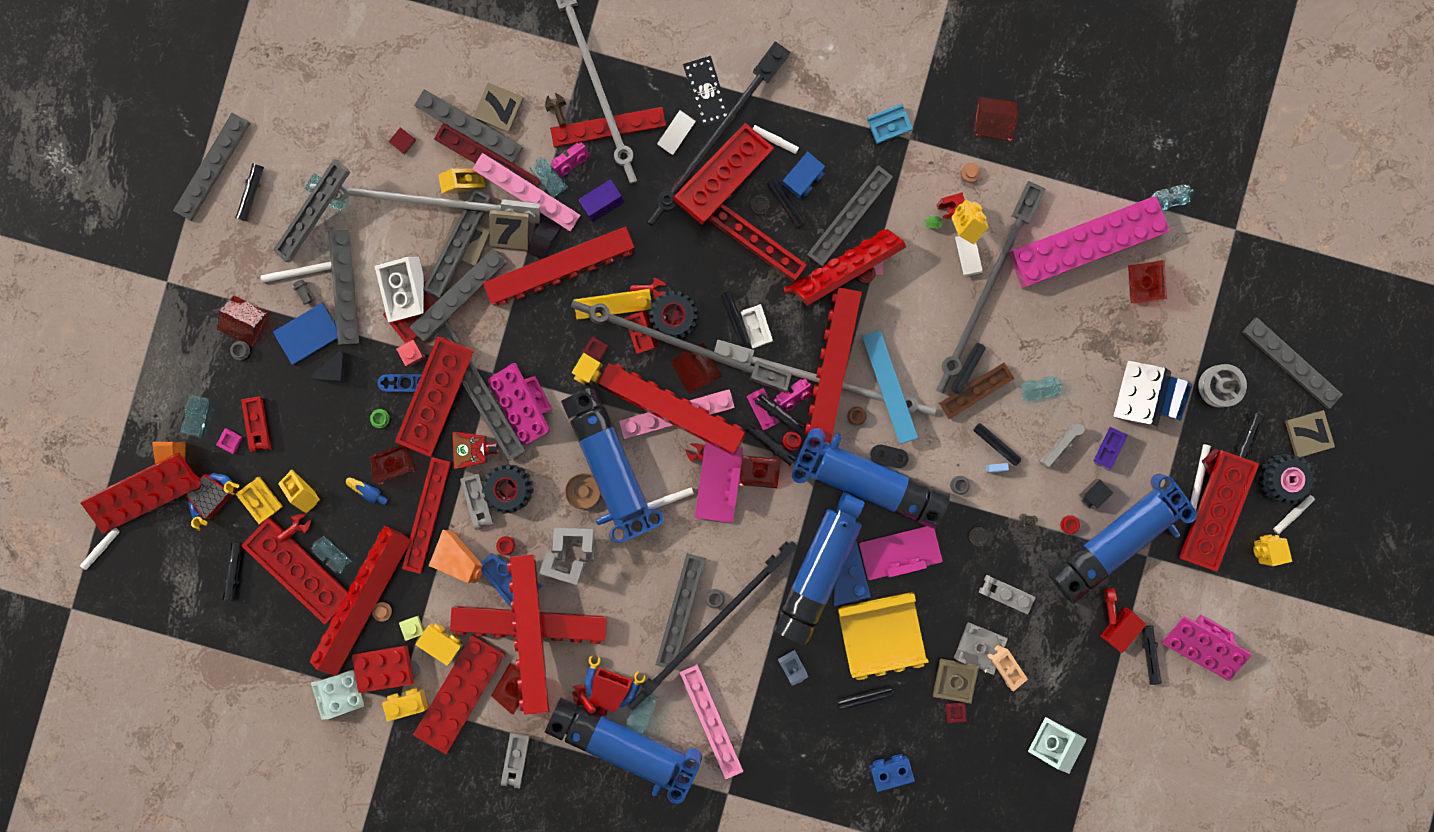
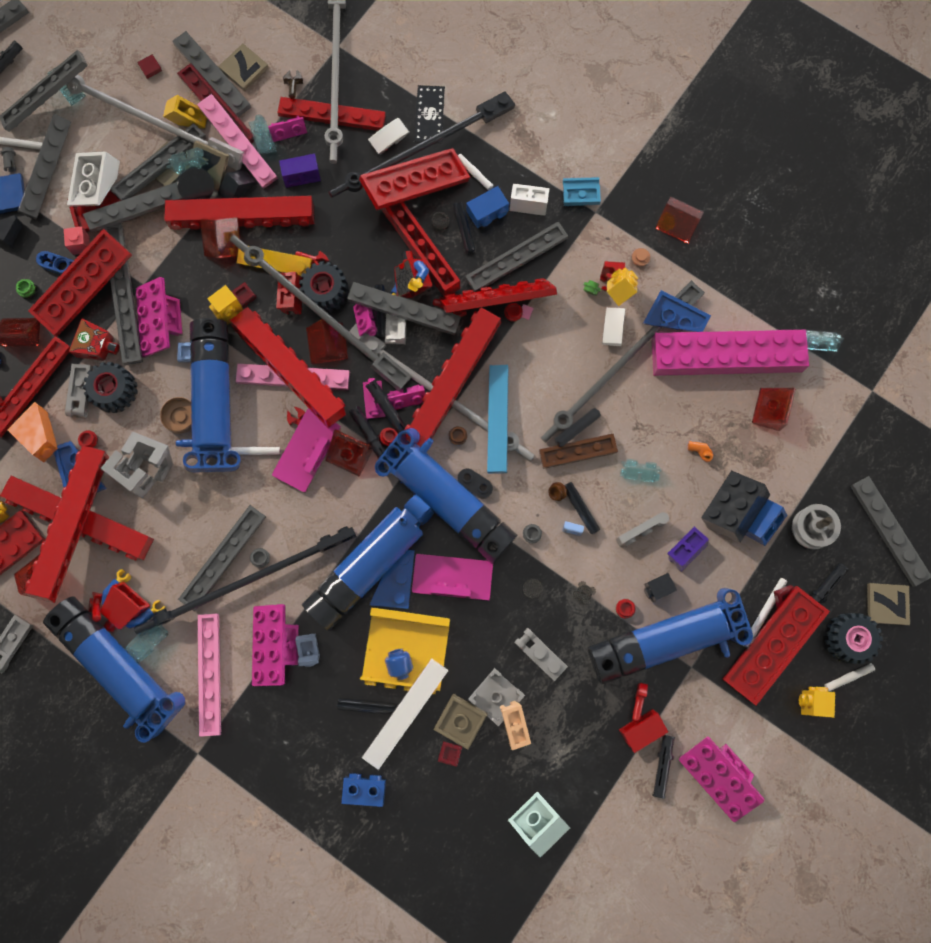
camera: 20 degrees right, 10 degrees down
(481, 237) = (179, 162): none -> clear light blue hinge
(505, 255) = (195, 184): none -> black tile
(551, 300) = (217, 235): none -> clear red slope
(563, 426) = (183, 352): none -> light blue tile
(723, 331) = (364, 320): none -> dark pink hinge
(755, 279) = (411, 277): none -> torso
(758, 675) = (272, 645): none -> dark pink bracket
(761, 311) = (404, 308): none -> dark grey plate
(841, 151) = (529, 199): none -> white hinge
(882, 650) = (399, 664): none -> blue head
(904, 693) = (405, 714): none -> white tile
(970, 437) = (557, 491): none -> reddish brown plate
(1023, 223) = (676, 314): none -> blue wing
(1093, 347) = (702, 449): none -> orange arm

